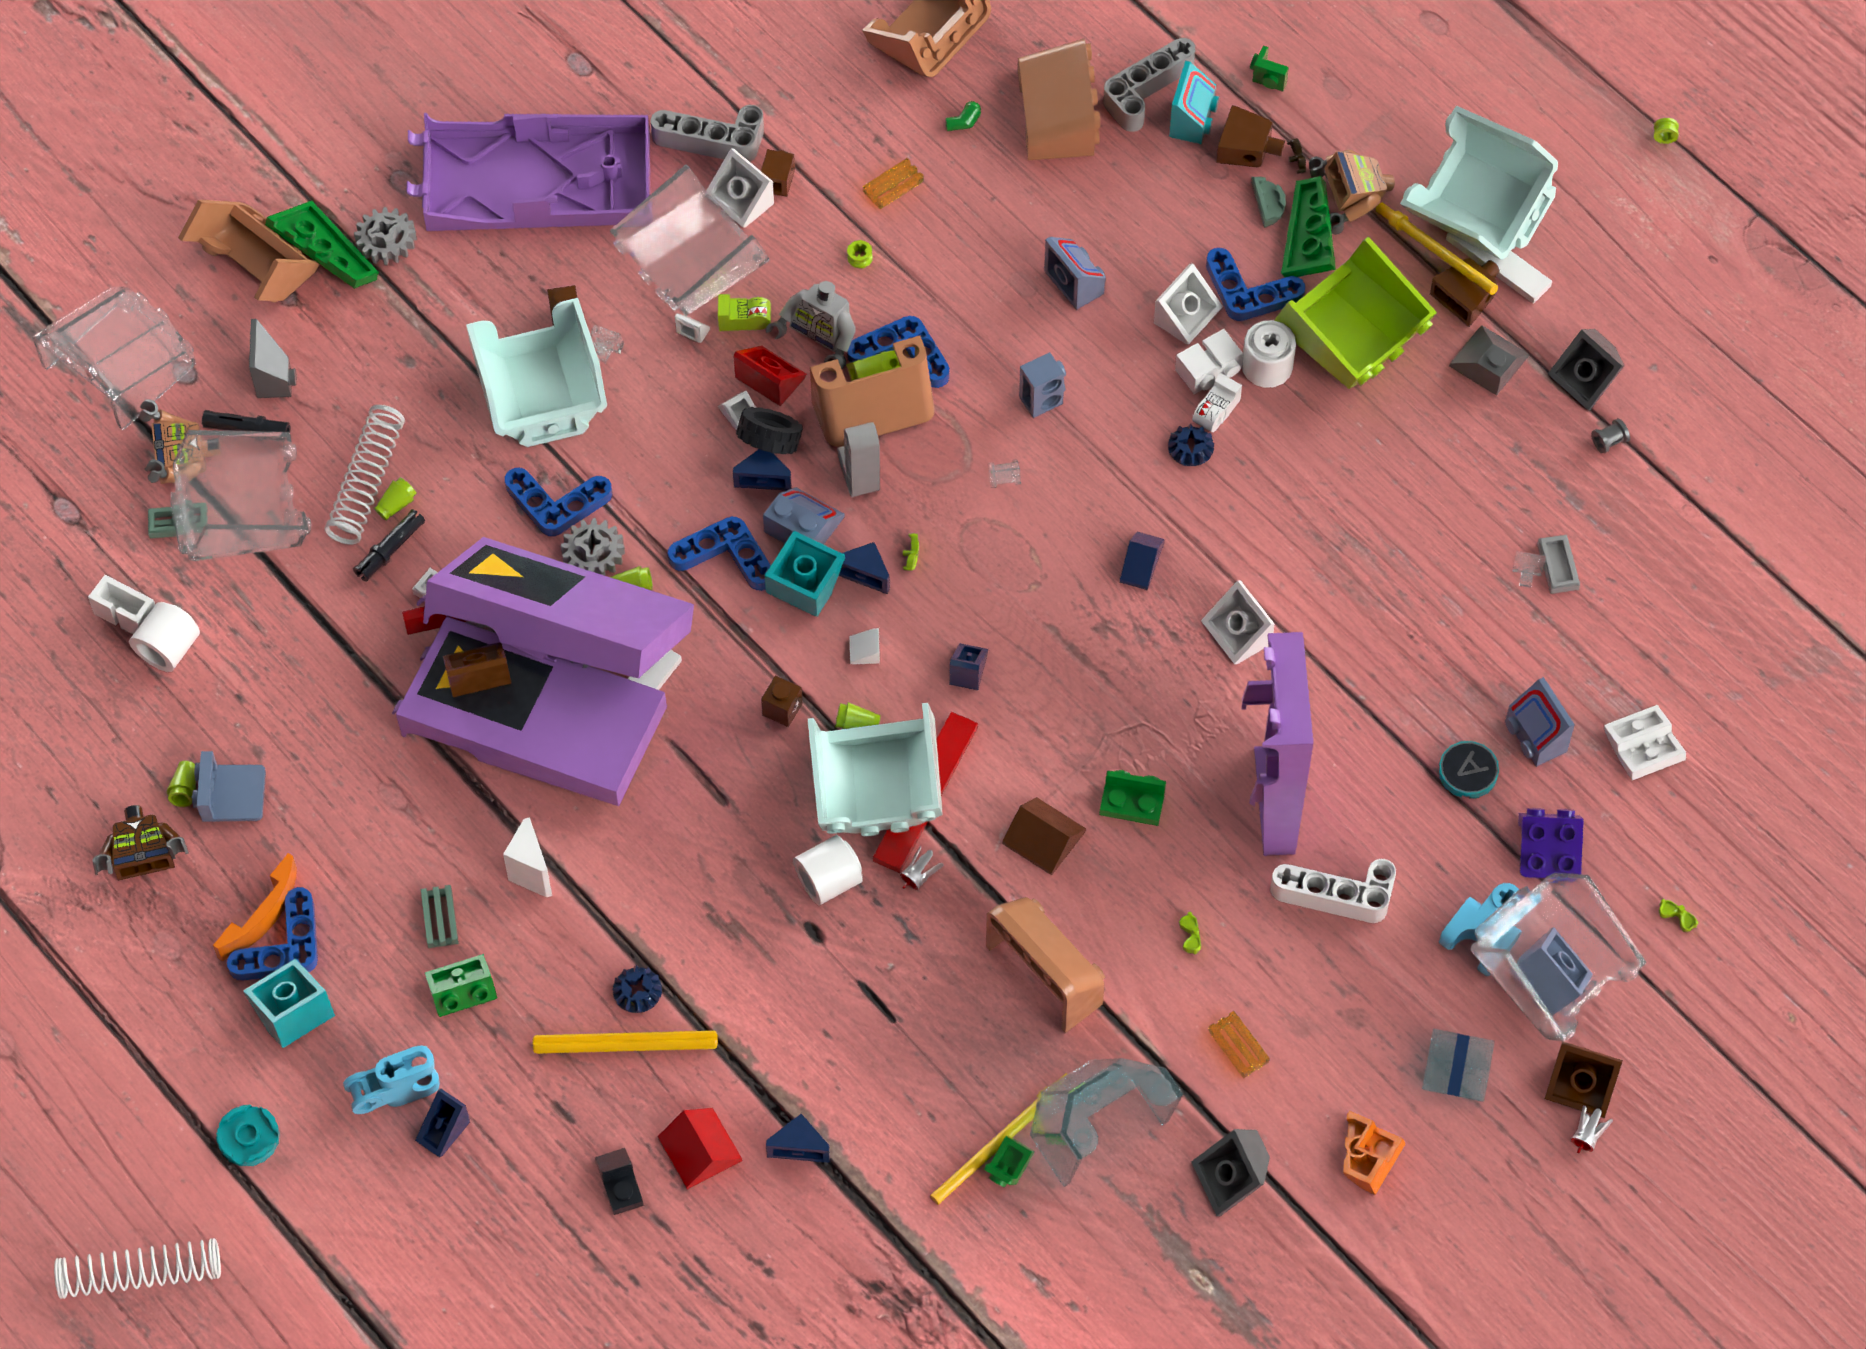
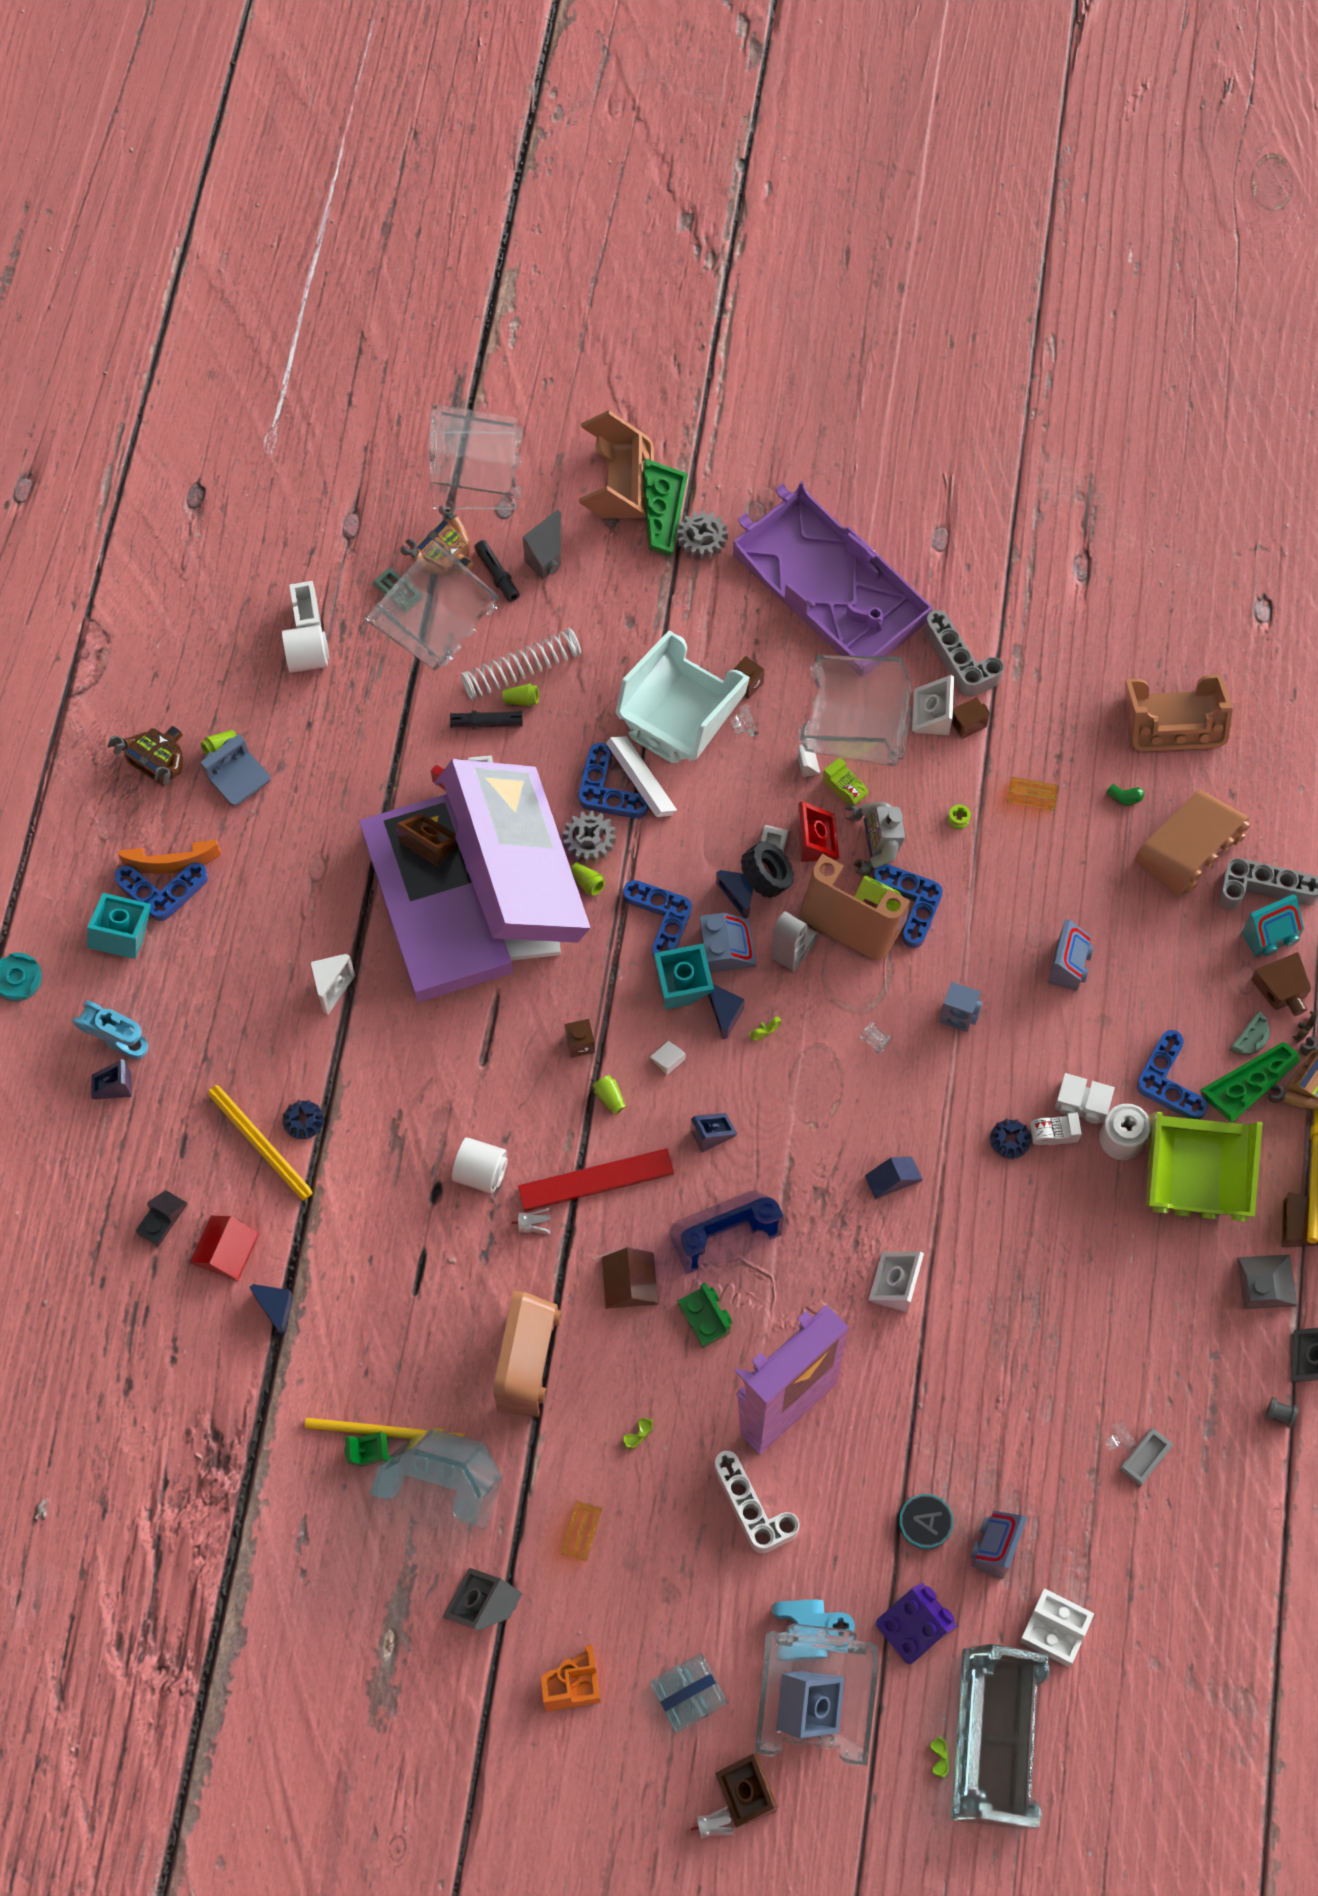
camera: 50 degrees right, 5 degrees up
(436, 893) = (253, 963): sand green tile -> none
(461, 985) = (216, 1013): green bracket -> none
(574, 464) = (641, 776): none -> white tile
(876, 776) = (567, 1136): light aqua windscreen -> none
(1055, 744) = (692, 1232): none -> clear blue windscreen
(1186, 305) = (1114, 1049): white slope -> none
(1697, 856) = (997, 1736): none -> windscreen

